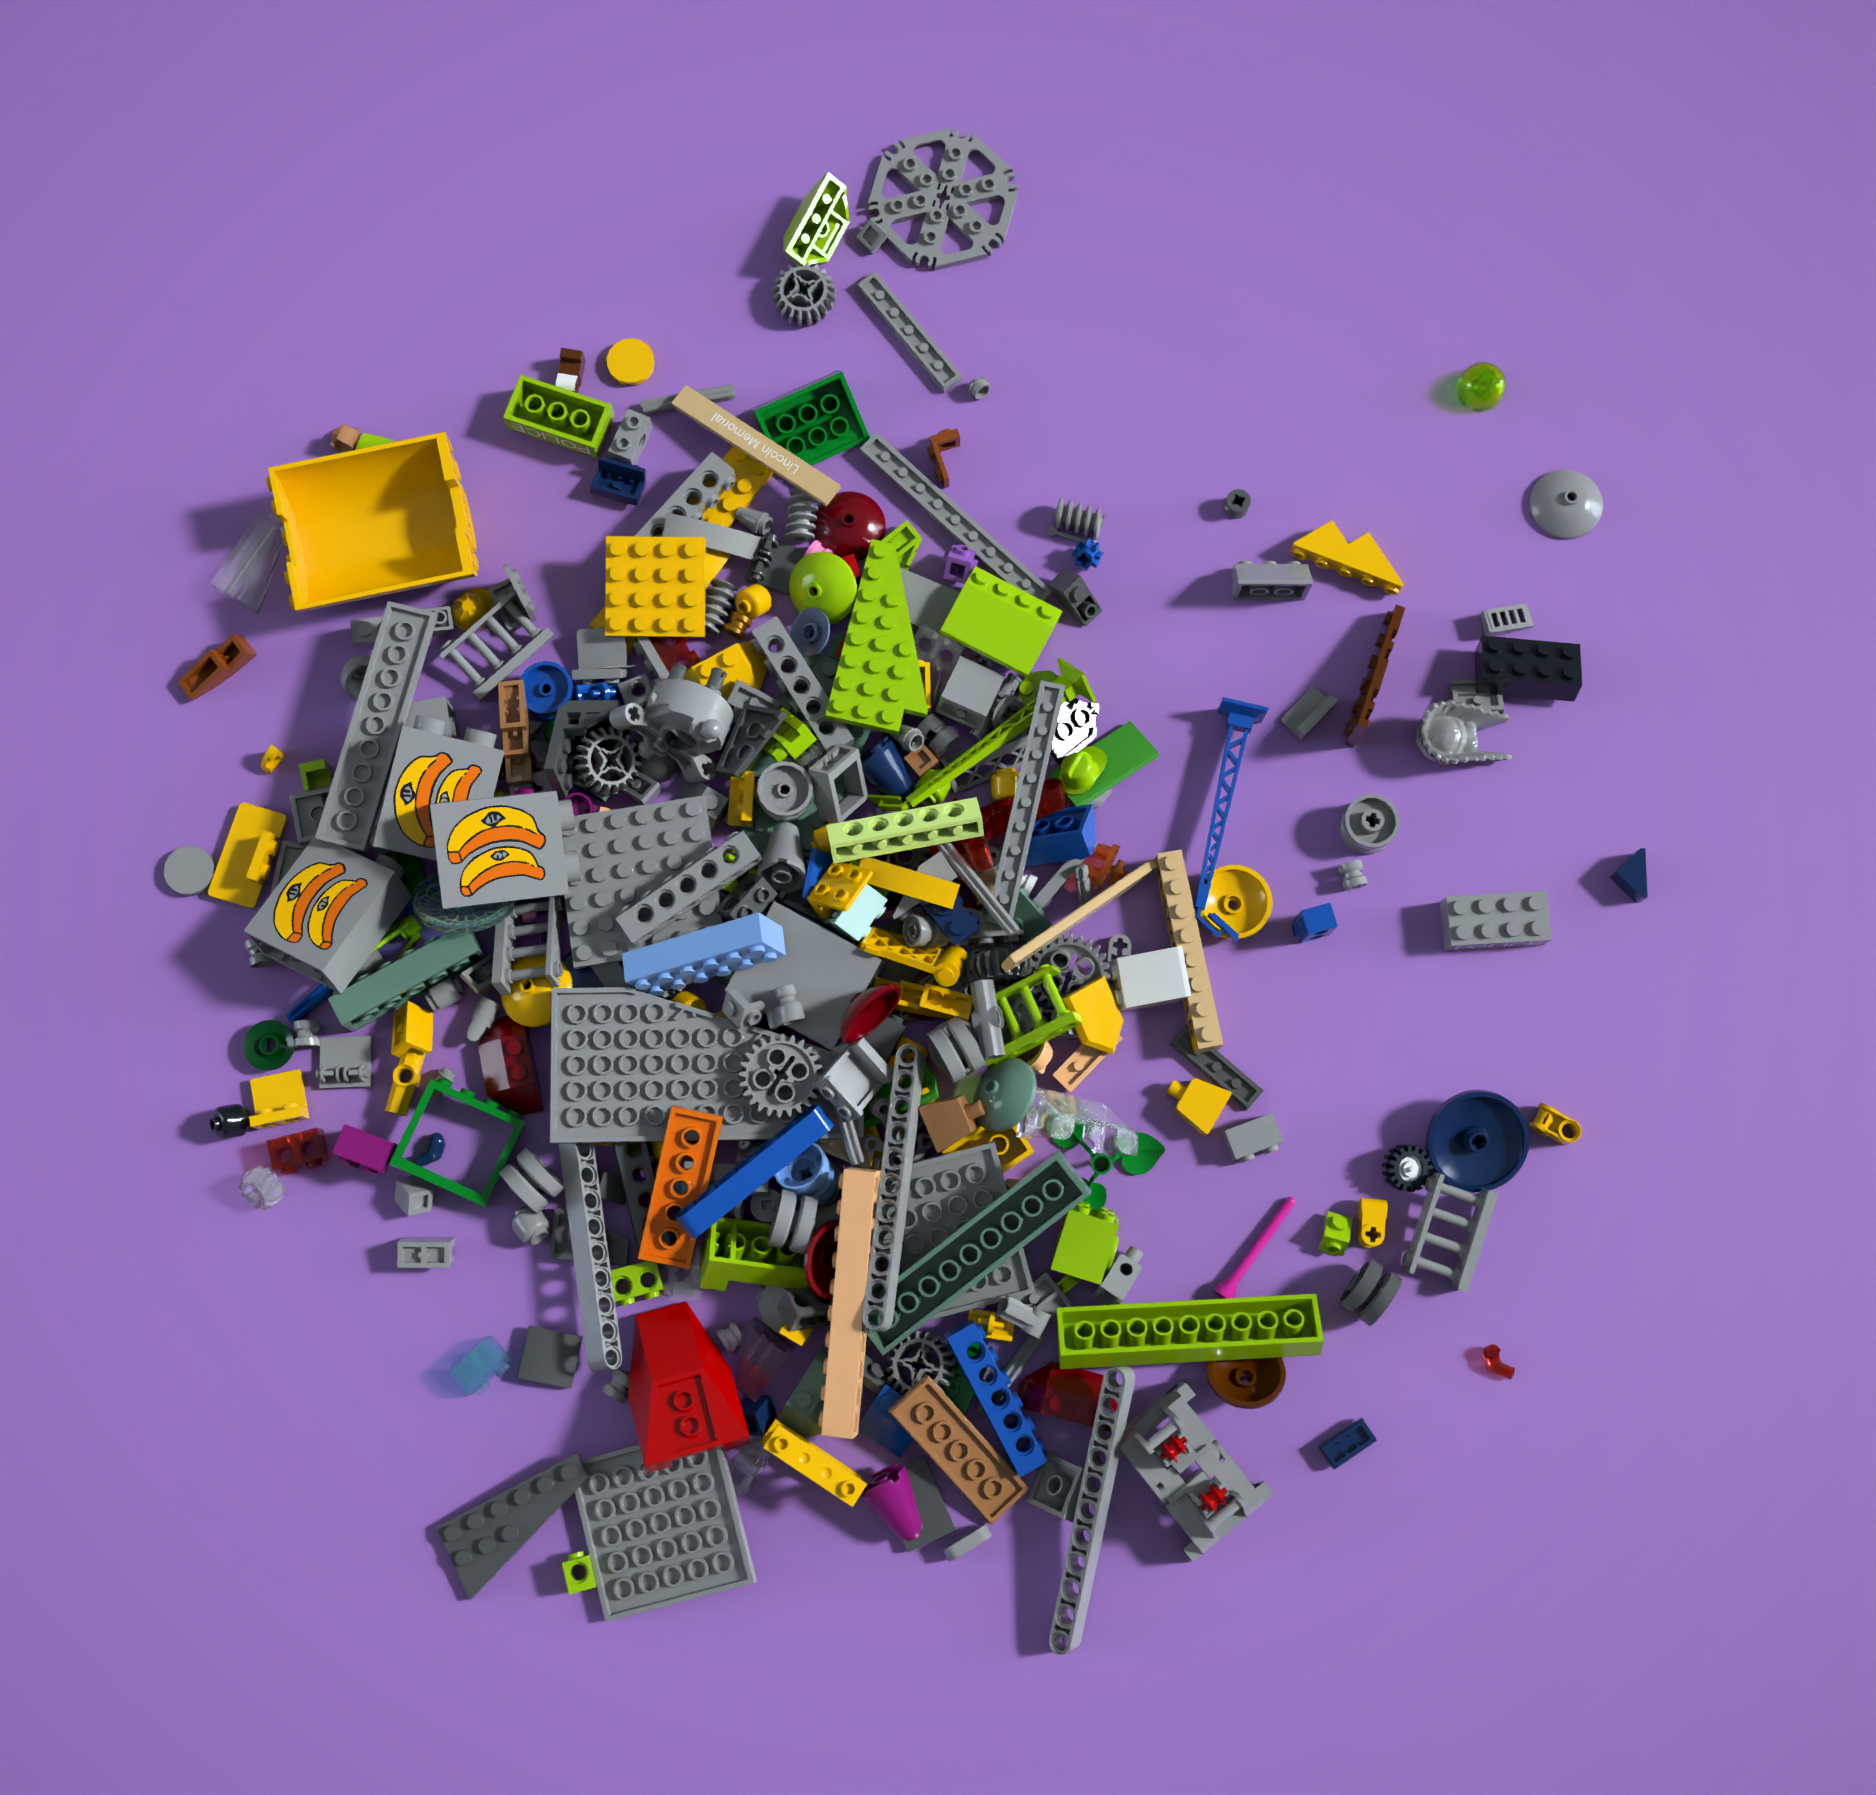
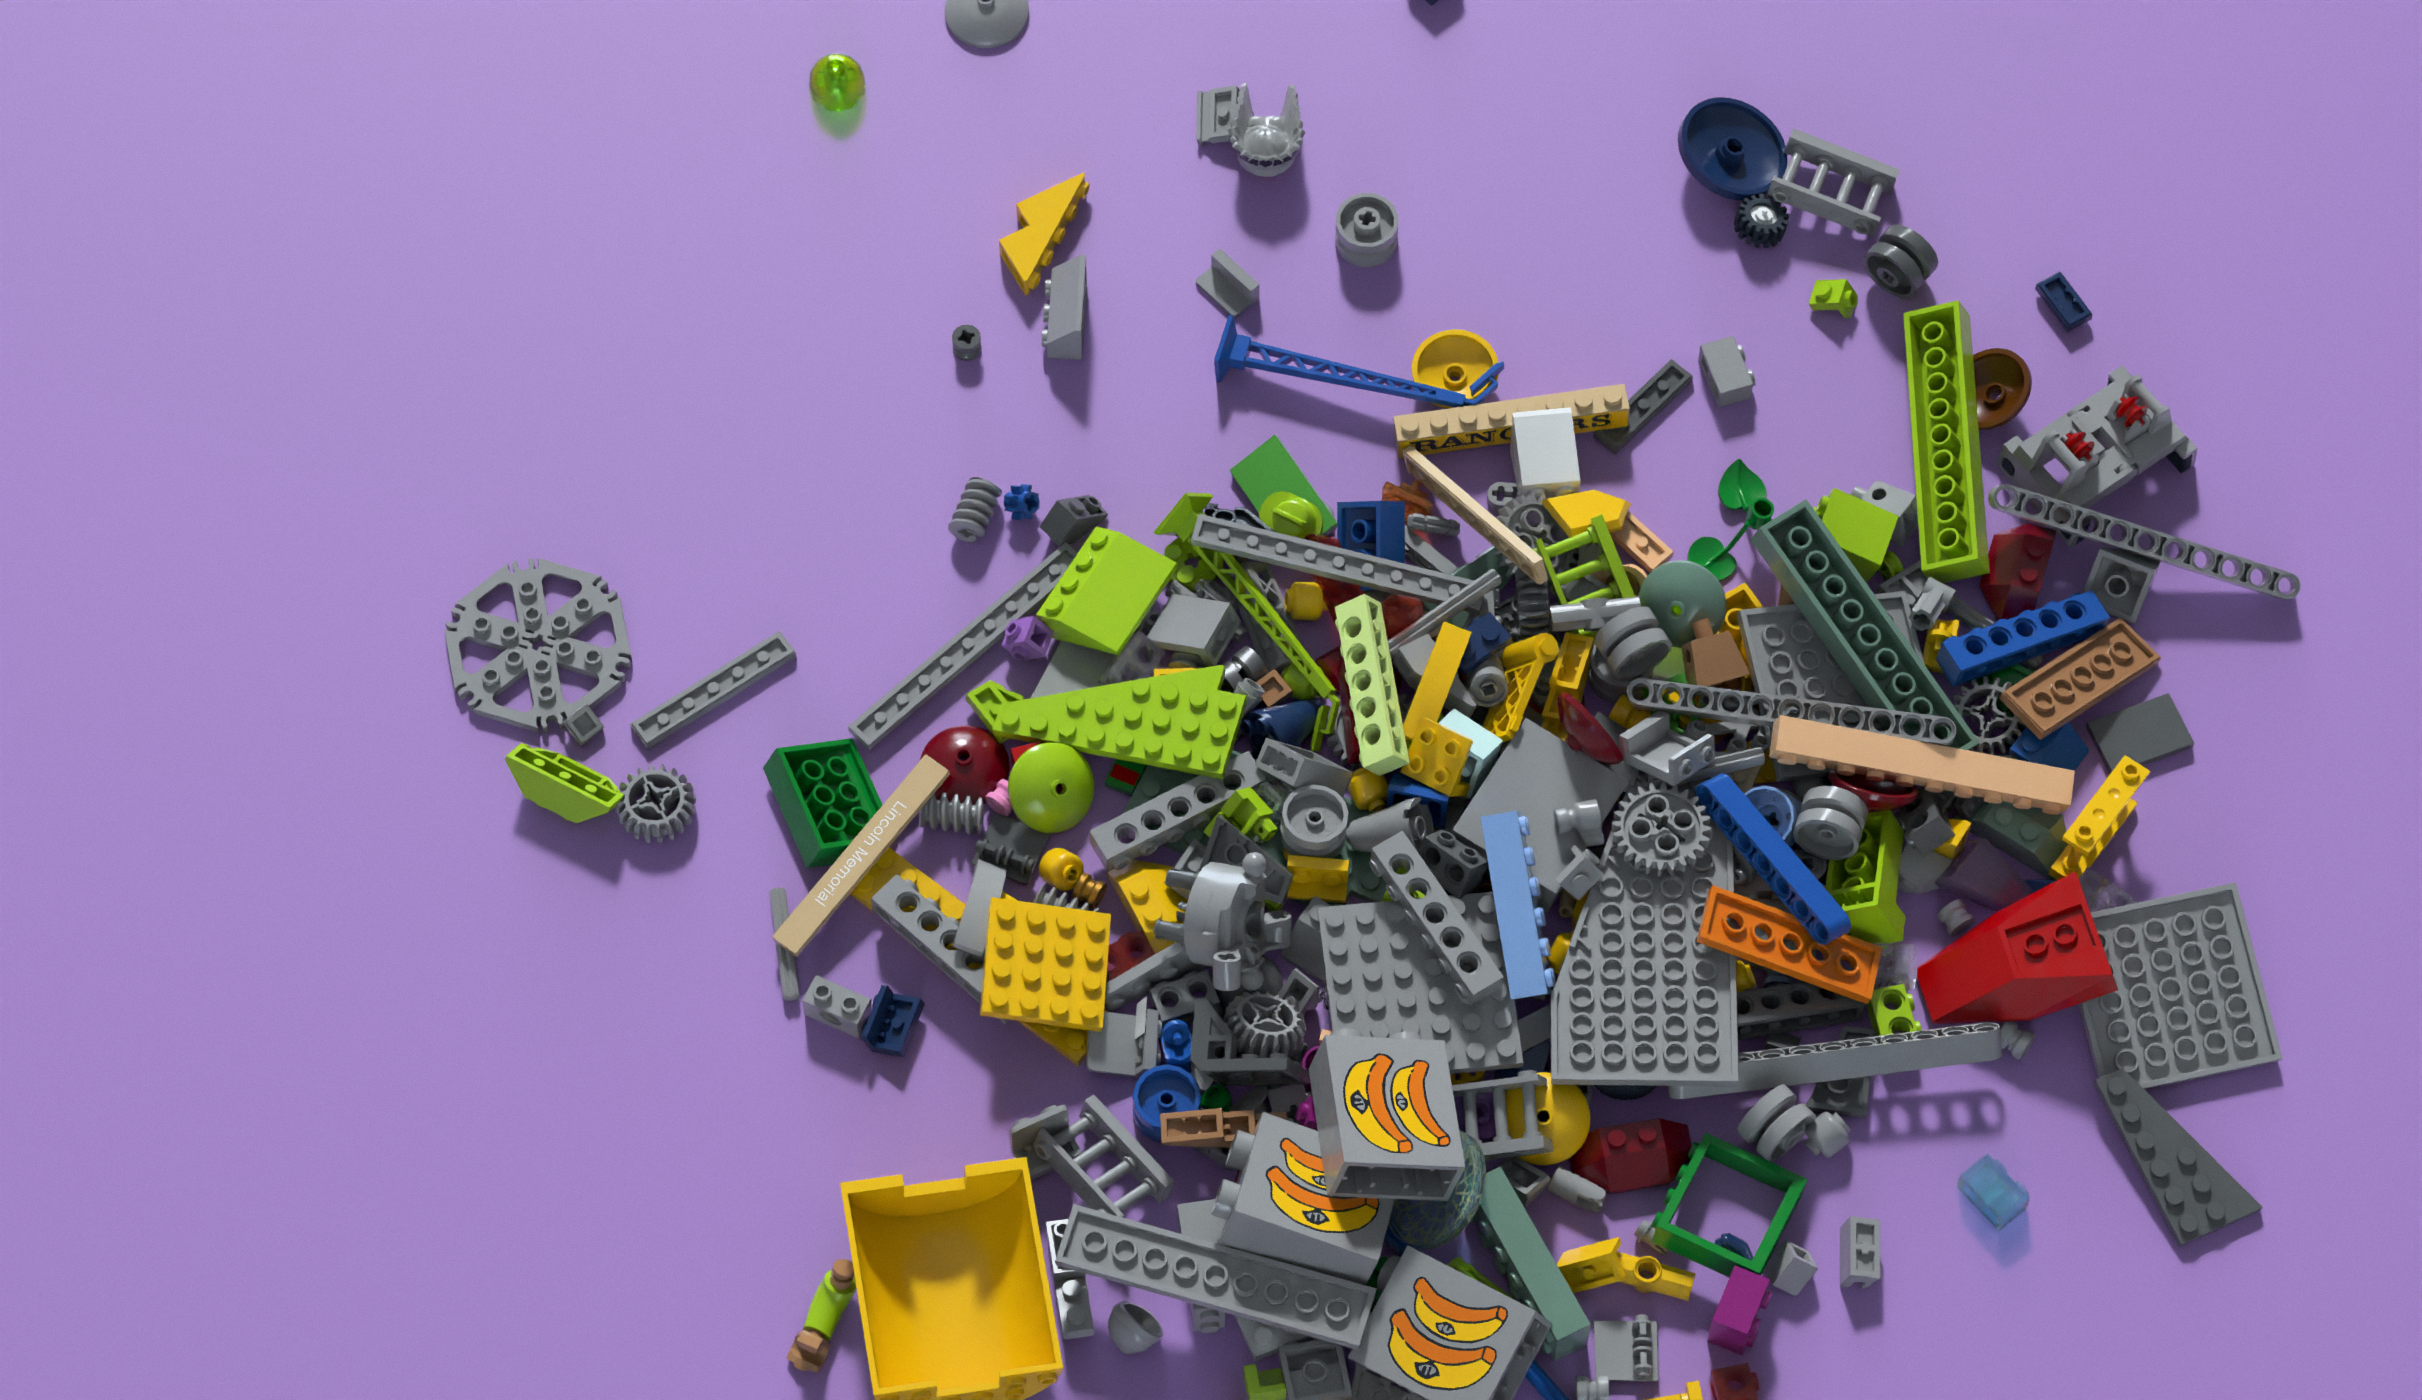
camera: 85 degrees left, 15 degrees down
(444, 993) = (1548, 1229): light grey brick -> none
(471, 607) = (1052, 1201): yellow piece -> none
(549, 1357) = (1981, 1118): dark grey slope -> none
(559, 416) = (802, 1087): lime brick -> none
(570, 369) = (740, 1079): reddish brown leg -> none
(576, 1584) = (2237, 1076): lime brick -> none
(630, 361) = (728, 1010): yellow tile -> none
(756, 521) = (953, 868): light grey cone -> none
(810, 631) = (1089, 799): sand blue dish -> none
(894, 1501) = (2140, 740): magenta cone -> none
(943, 441) = (882, 661): dark orange bracket -> none
(967, 1542) = (2181, 681): light grey beam -> none
(979, 388) = (796, 612): light grey plate -> none
(1052, 531) = (985, 543): light grey hinge -> none
(1056, 1114) = (1716, 526): clear windscreen -> none
(1199, 1103) = (1687, 422): yellow torso -> none
(1228, 1287) = (1896, 408): dark pink piece -> none
(1314, 923) = (1482, 288): blue brick -> none
(1353, 877) = (1425, 252): light grey wheel -> none
(1371, 1216) = (1820, 259): yellow piece -> none
(1372, 682) = (1198, 209): reddish brown wing -> none
(1488, 625) = (1129, 97): light grey slope -> none
(1494, 1364) = (1973, 157): clear red arm -> none
(1495, 920) = (1482, 115): light grey brick -> none
(1528, 668) = (1189, 58): black brick -> none
(1550, 1123) = (1712, 79): yellow piece -> none

